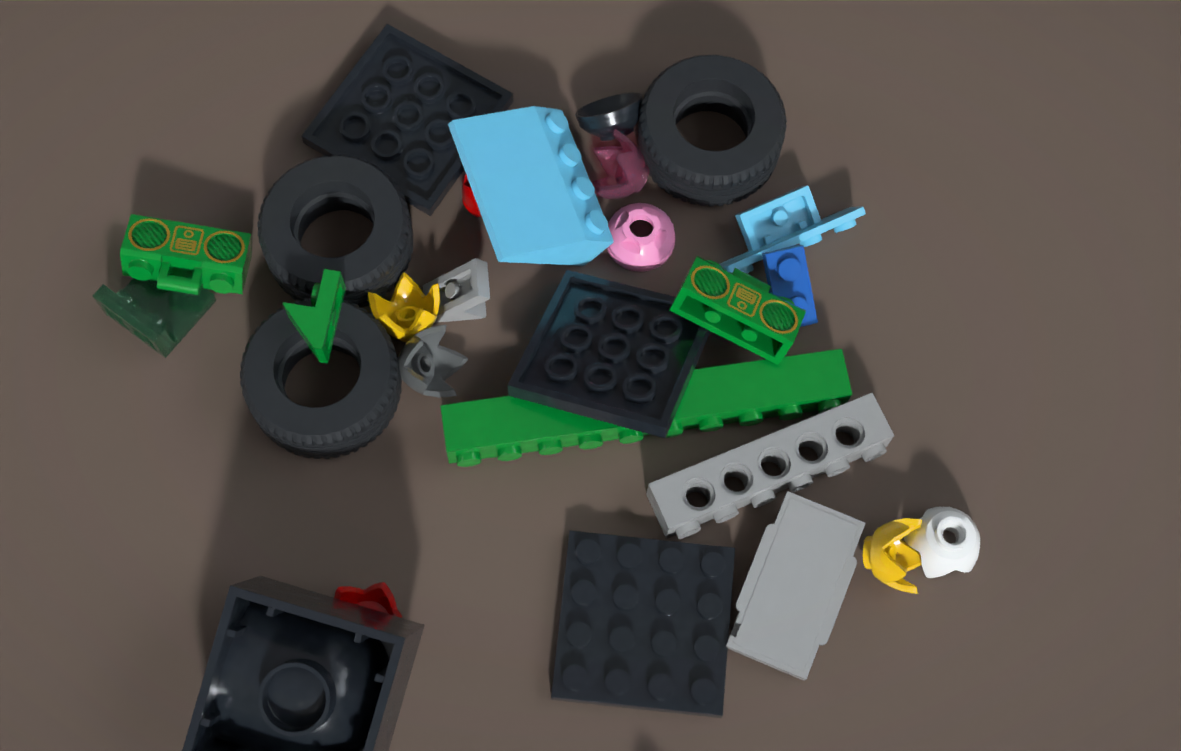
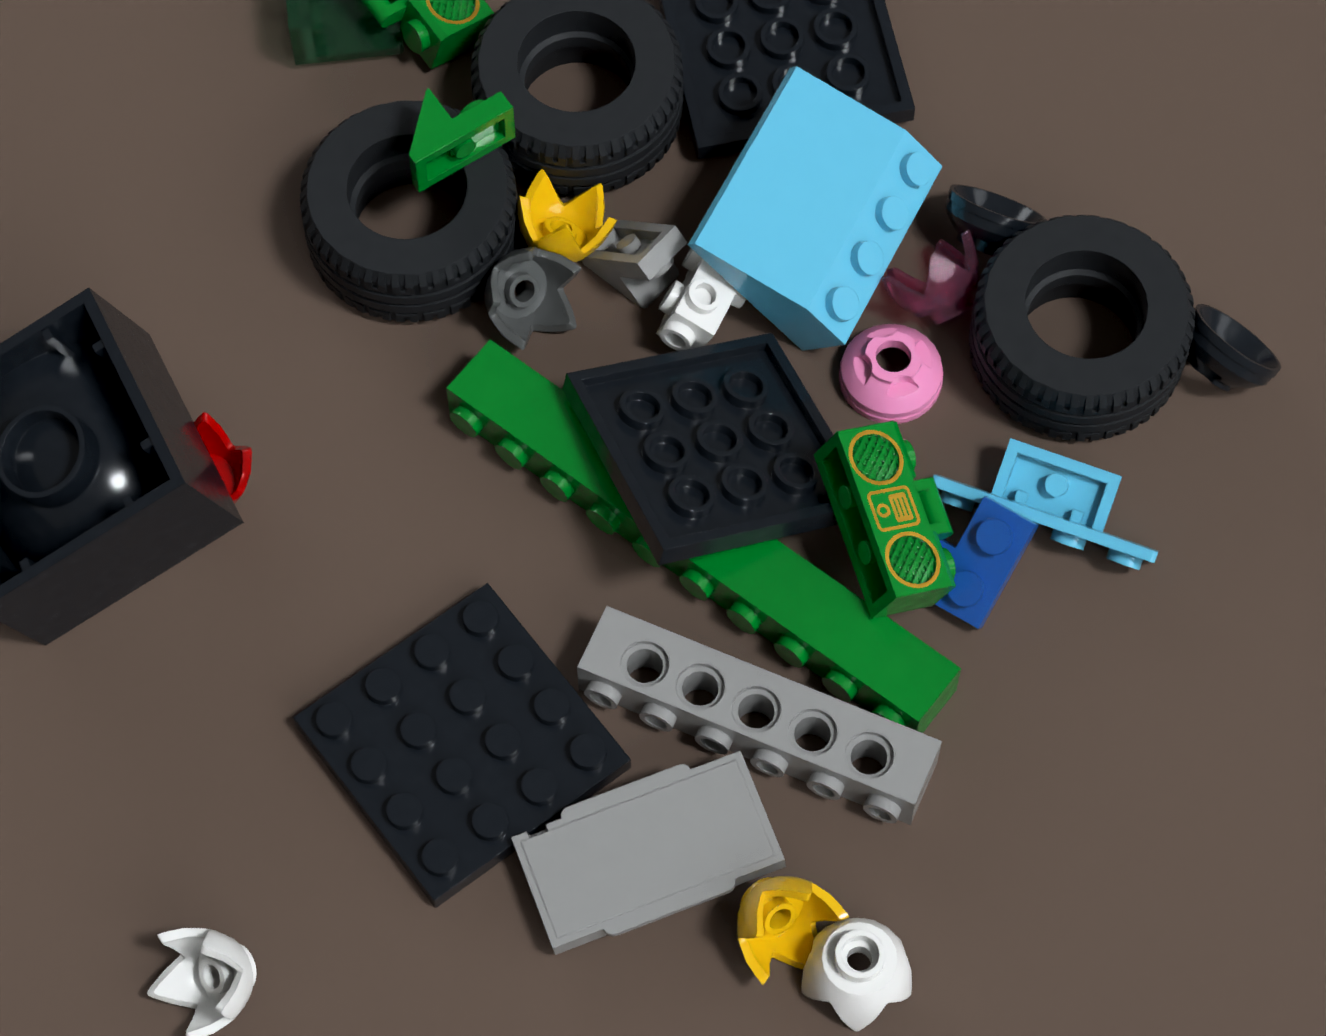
camera: 50 degrees right, 5 degrees down
(518, 287) = (696, 306): none -> white brick
(791, 80) = (1229, 352): none -> black piece

